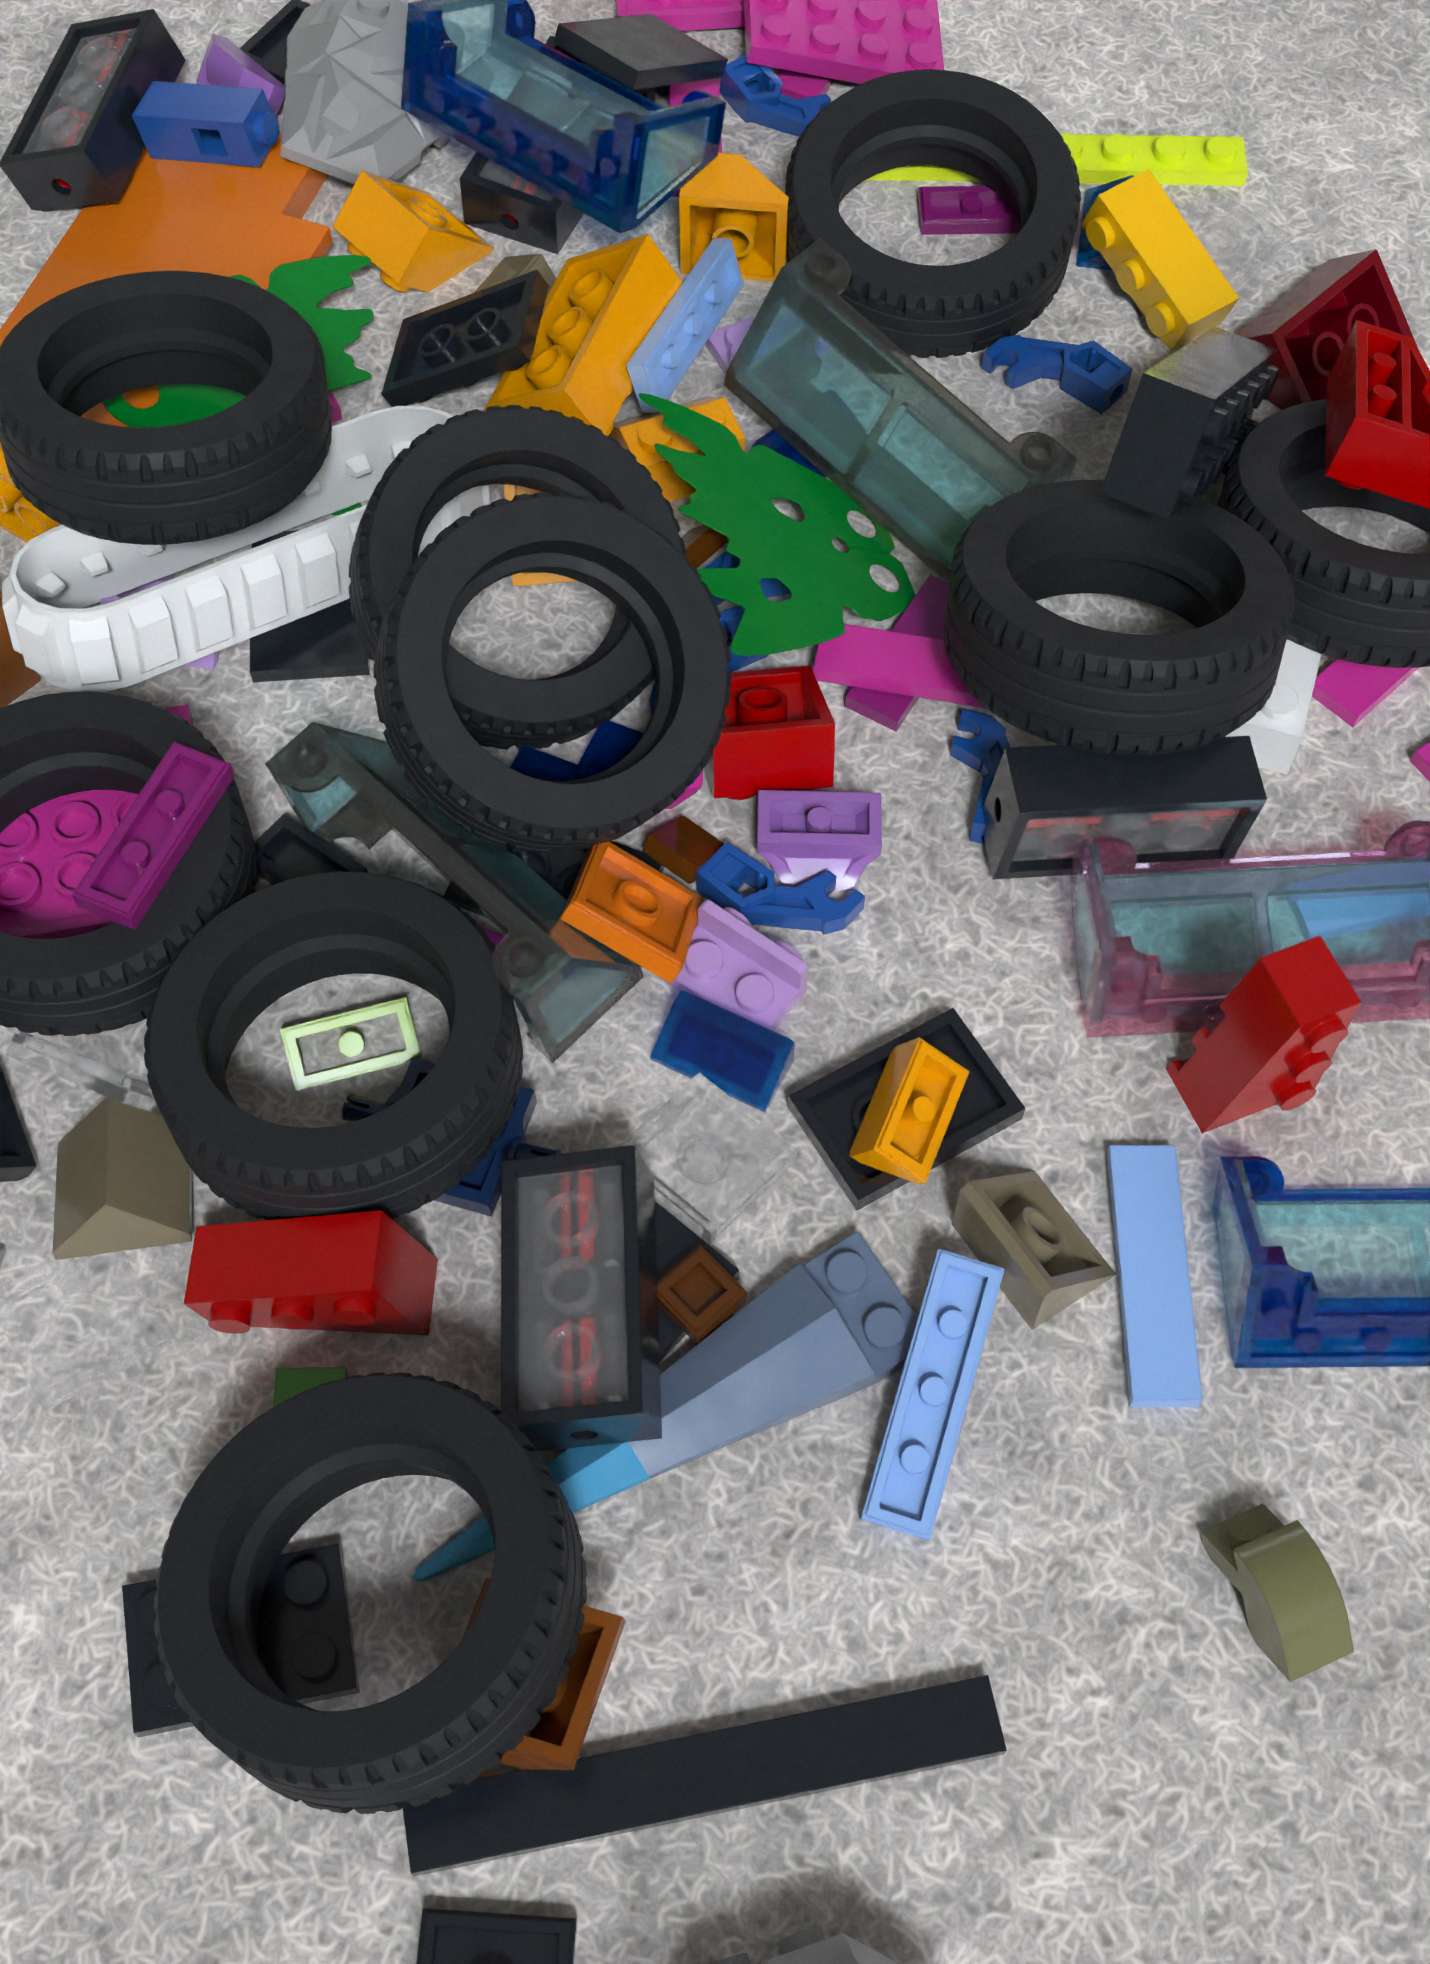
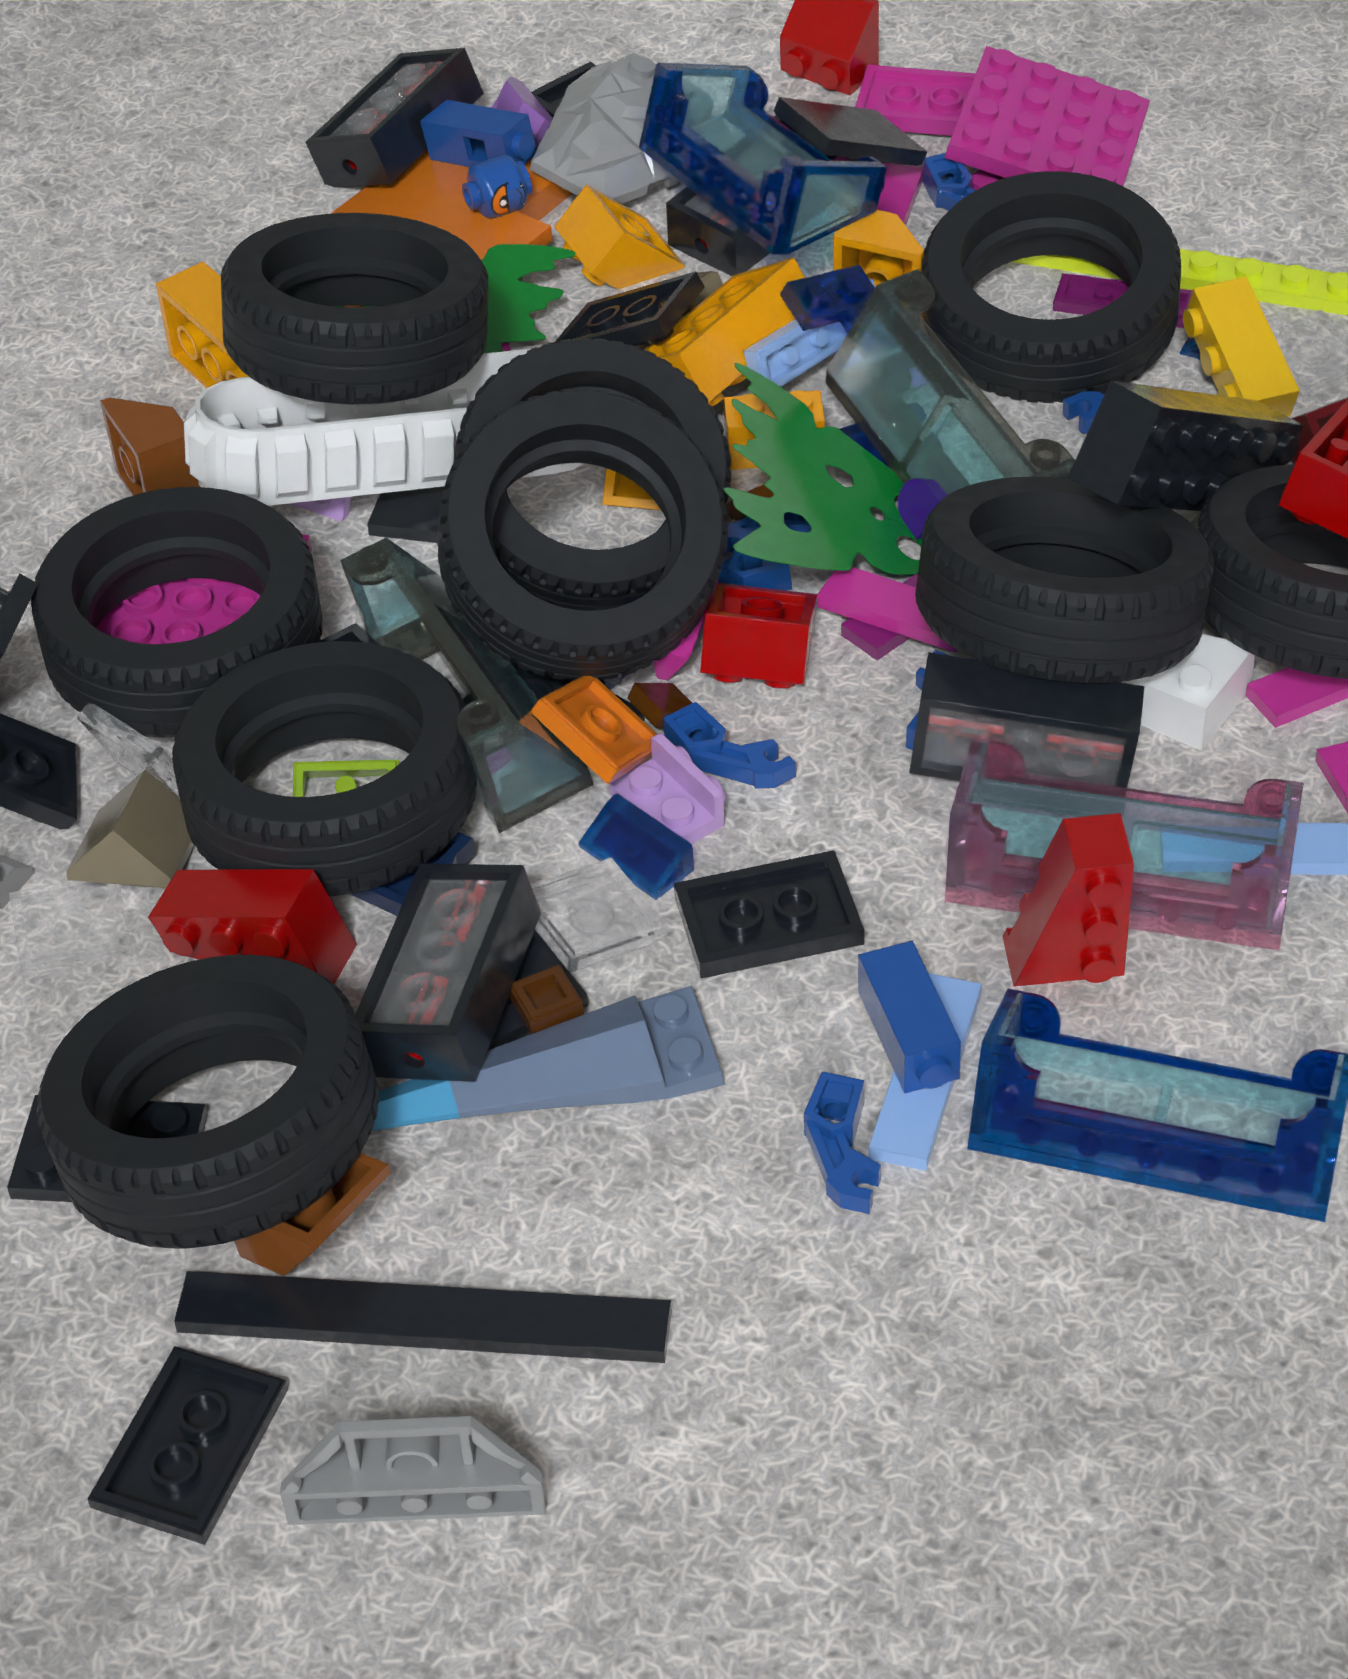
camera: 20 degrees right, 15 degrees down
(153, 835) = (237, 588): magenta tile -> none
(253, 188) = (497, 186): none -> blue head
(708, 274) = (828, 298): none -> clear blue plate
(818, 833) = (776, 709): medium lavender slope -> none
(887, 524) = (916, 501): none -> dark purple tile
(909, 1111) = (767, 910): light orange slope -> none
(932, 1395) = (704, 1105): light blue tile -> none
(1028, 1232) = (826, 1020): dark tan slope -> none
(1104, 1429) = (841, 1167): none -> blue piece
(1128, 1224) = (909, 1017): none -> blue brick
(1285, 1589) = (931, 1293): olive brick -> none

